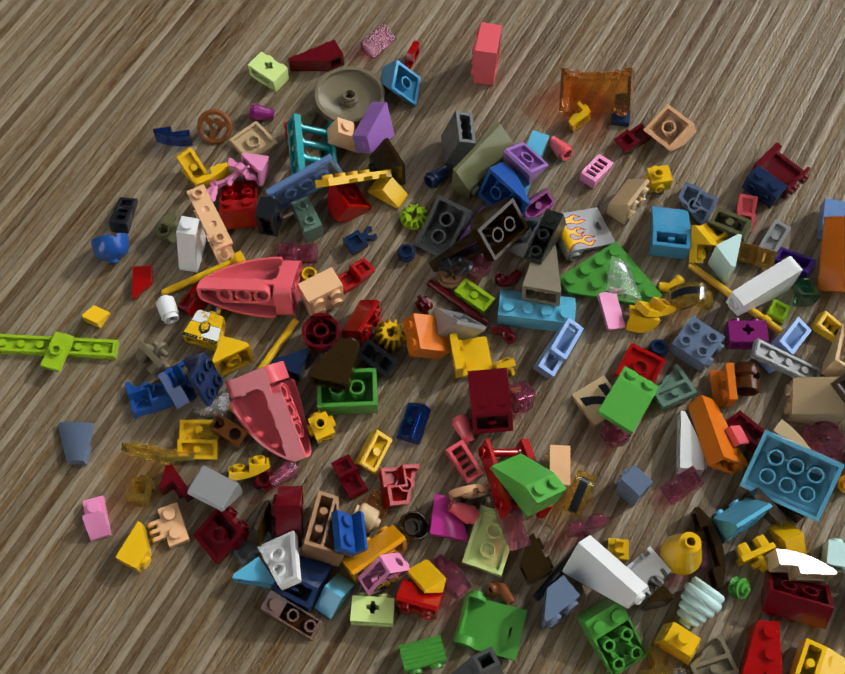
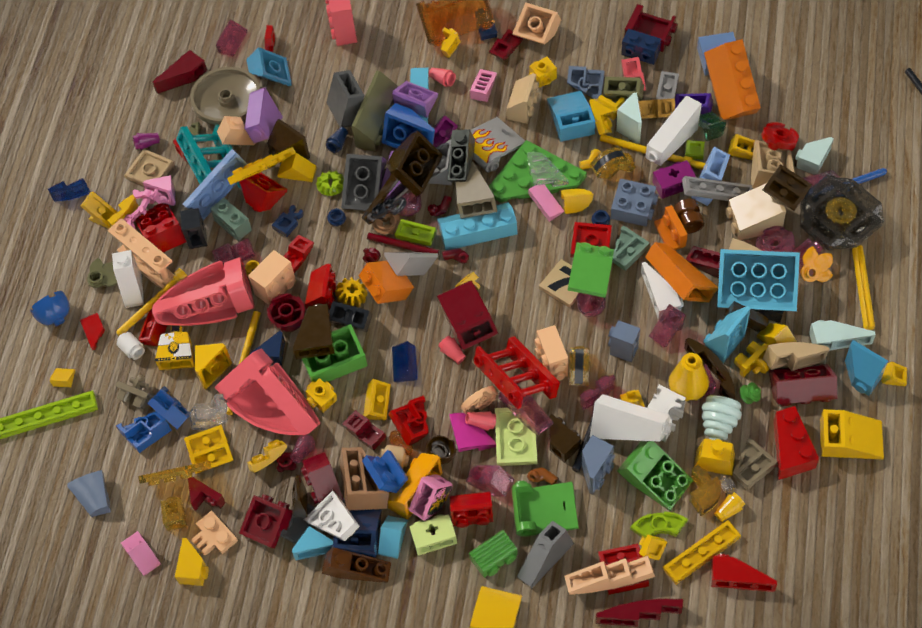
camera: 15 degrees left, 5 degrees down
(57, 352) = (39, 420): lime plate -> none
(123, 225) = (50, 279): black slope -> none
(203, 377) = (191, 388): dark blue bracket -> none
(214, 489) = (244, 482): light grey slope -> none
(227, 123) = (93, 161): dark orange piece -> none
(228, 431) = (234, 430): reddish brown leg -> none
(268, 71) = (137, 100): yellowish green brick -> none
(427, 577) = (471, 485): yellow slope -> none
(460, 444) = (460, 383): coral slope -> none
(469, 354) = (430, 284): yellow bracket -> none
(521, 396) = (495, 302): clear pink slope -> none
(529, 483) = (532, 368): bright green slope -> none
(558, 348) = (511, 250): light blue slope -> none
(655, 308) = (584, 184): yellow slope -> none
(660, 598) = (684, 427): dark brown slope -> none
(737, 436) = (699, 266): coral tile -> none

